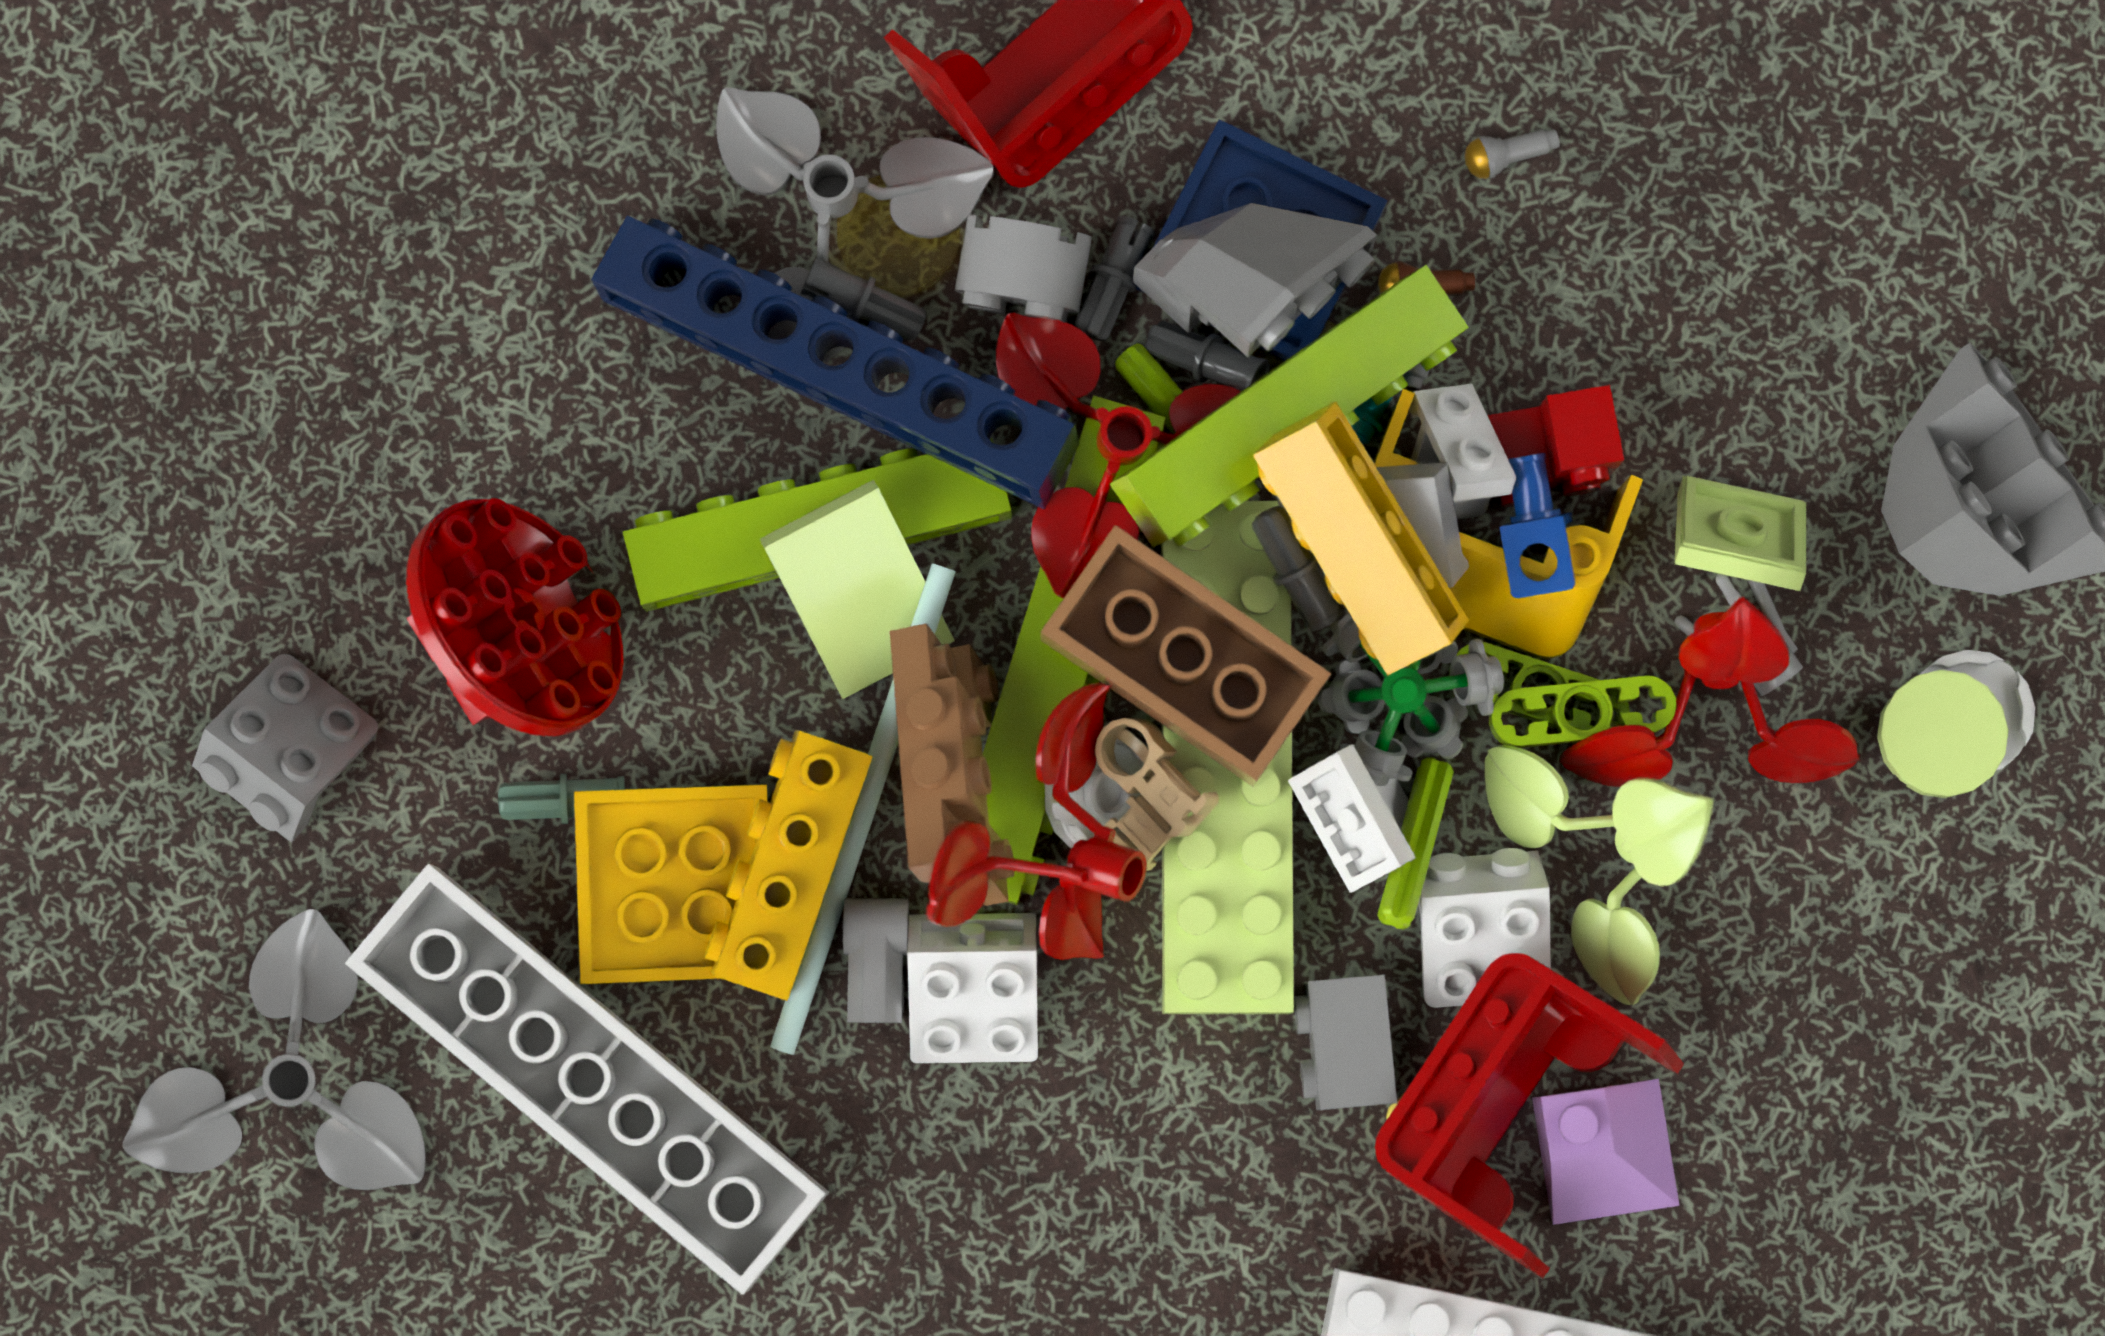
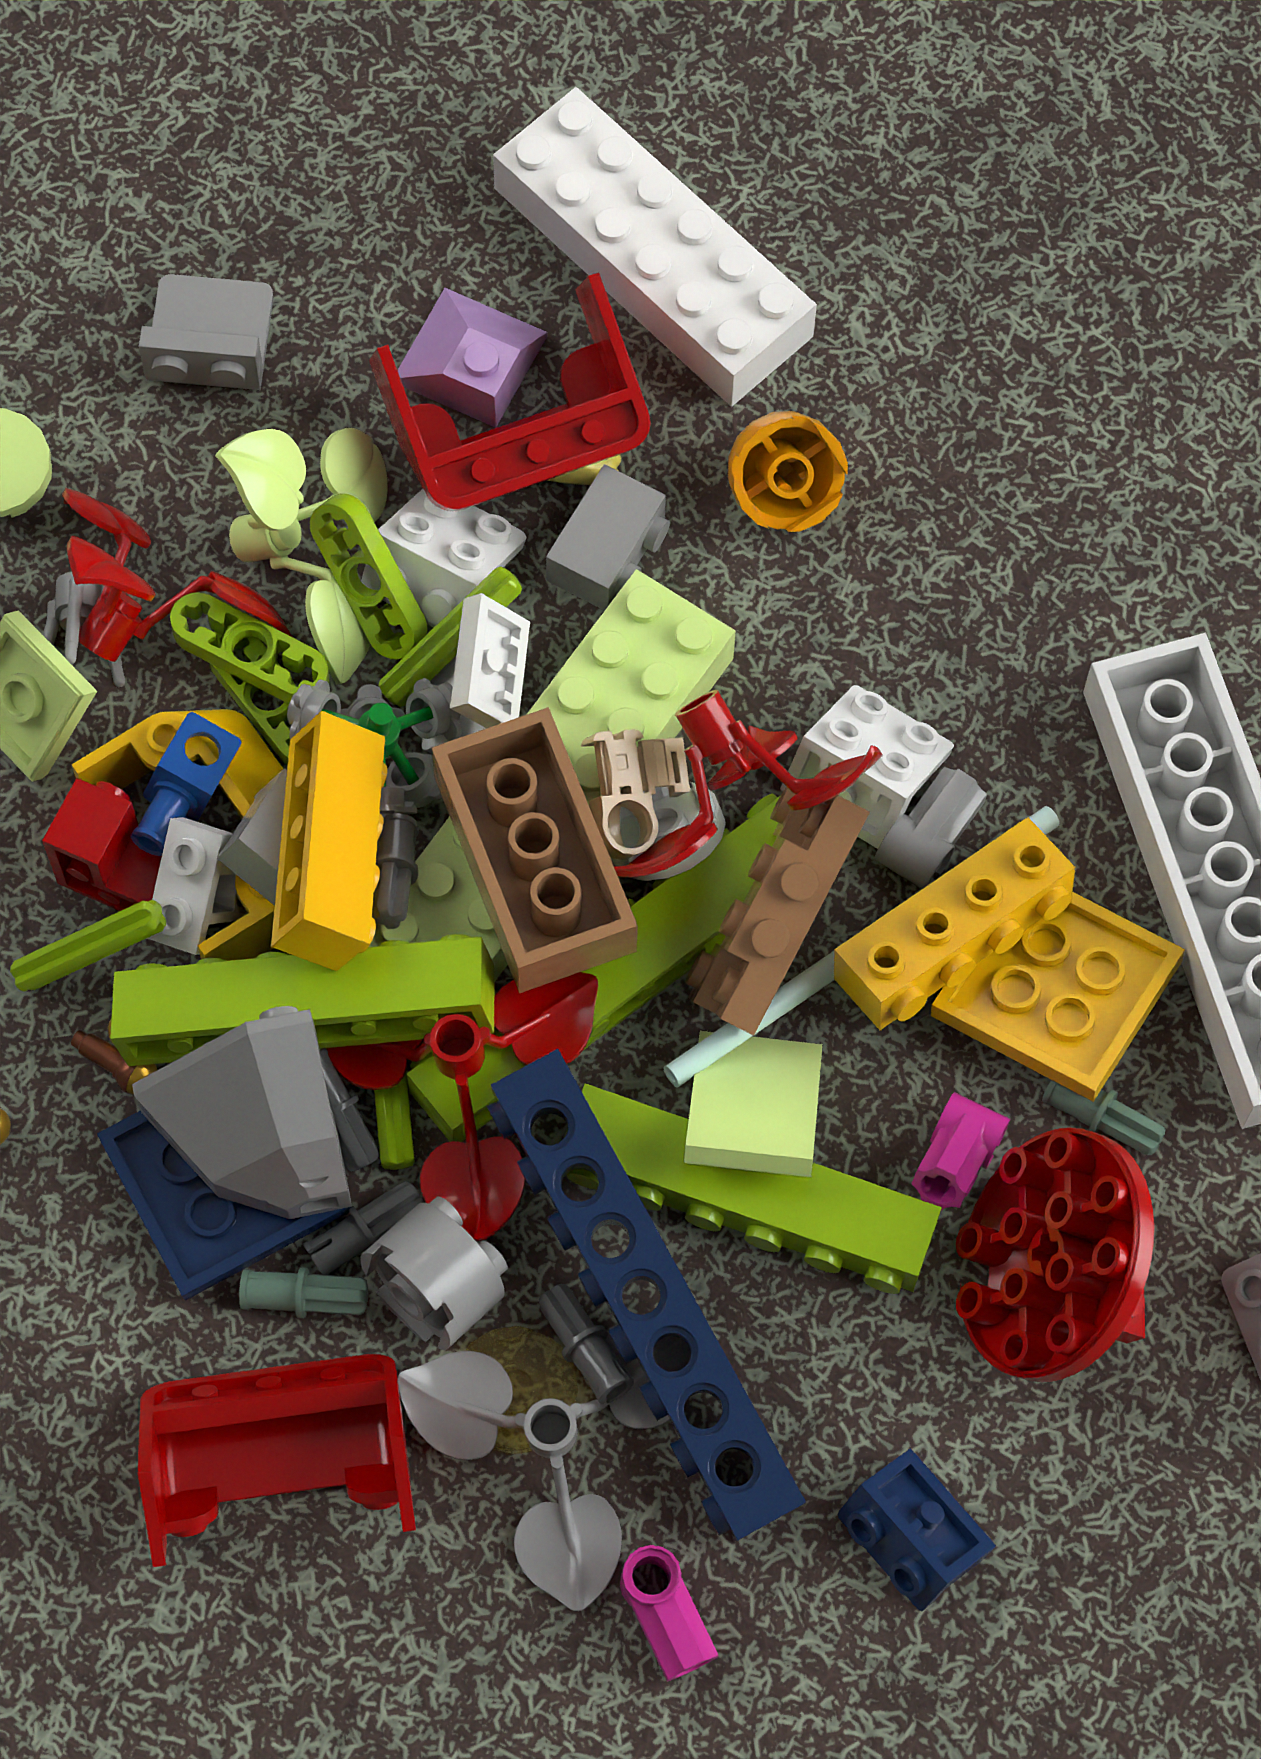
camera: 145 degrees left, 15 degrees down
(494, 334) = (914, 1529): none -> dark blue bracket
(648, 131) = (668, 1617): none -> dark pink piece
(662, 685) = (958, 1150): none -> dark pink piece
(1125, 192) = (303, 1292): none -> sand green axle
(1230, 1212) = (787, 471): none -> light orange cylinder
(1512, 345) = (88, 945): none -> lime axle
(1527, 846) = (375, 553): none -> lime beam
(1855, 1004) = (208, 332): none -> light grey bracket

